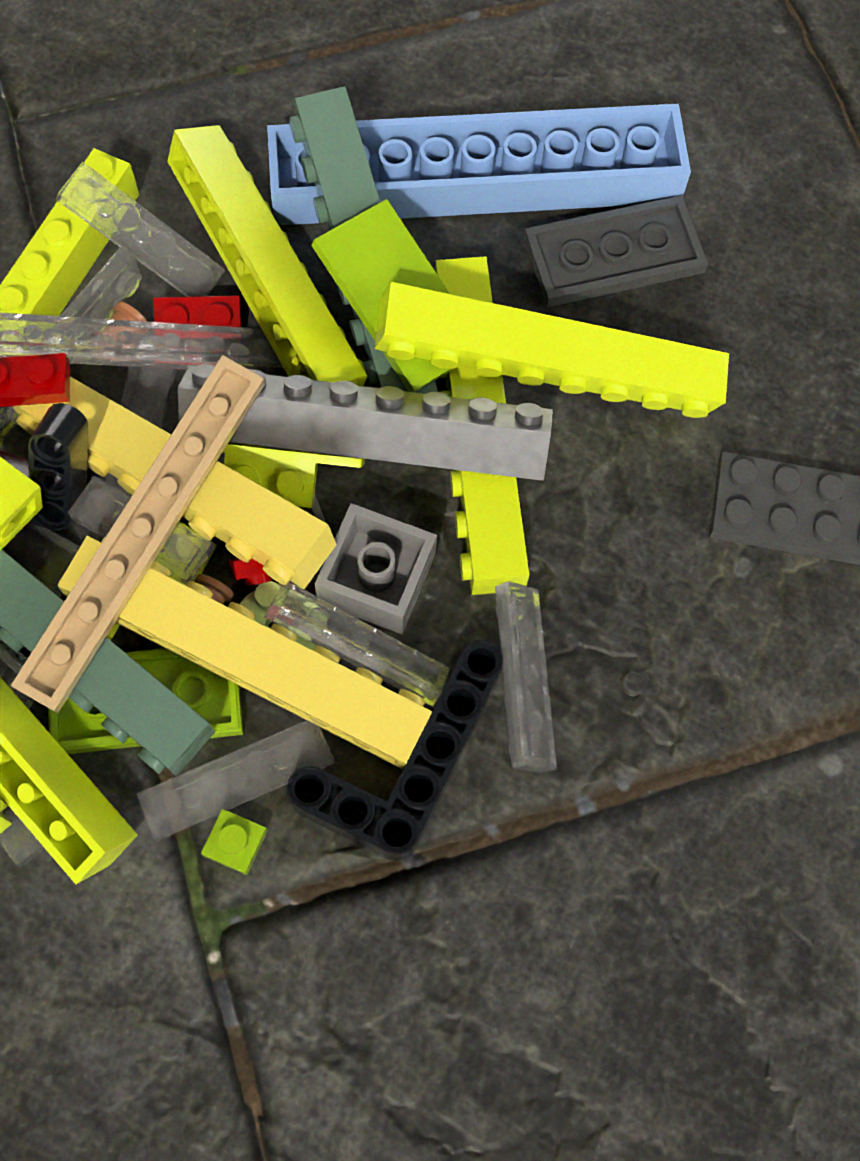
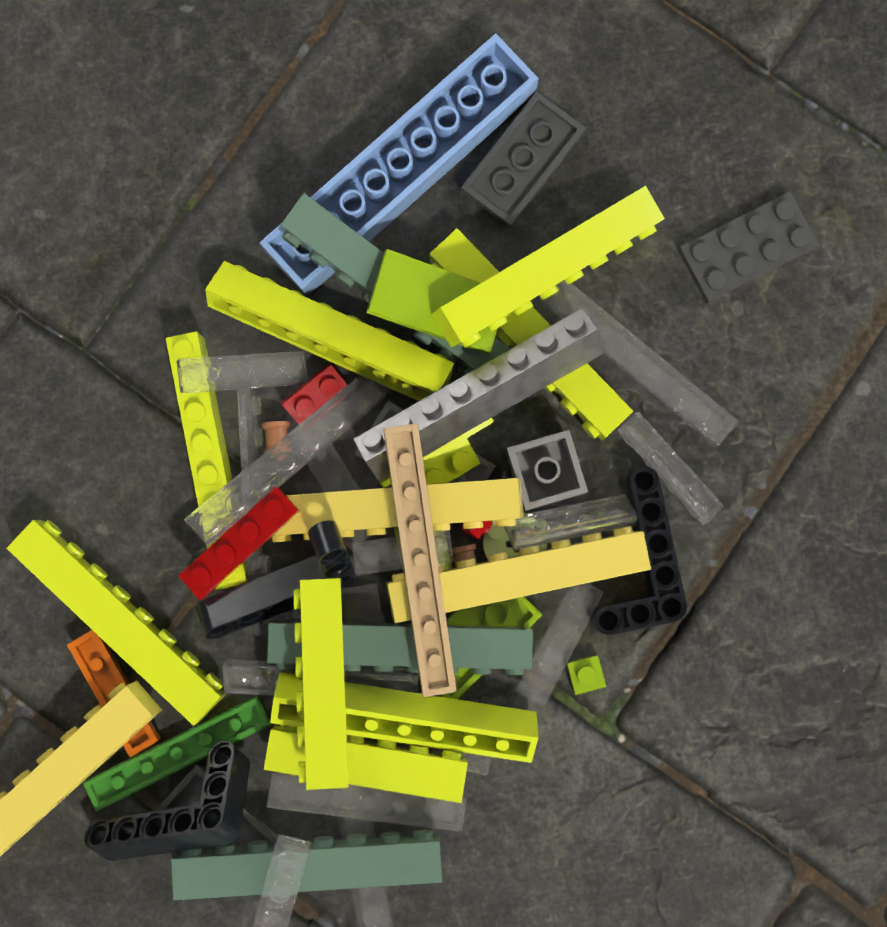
camera: 30 degrees left, 15 degrees up
(586, 550) = (646, 366): none -> clear plate

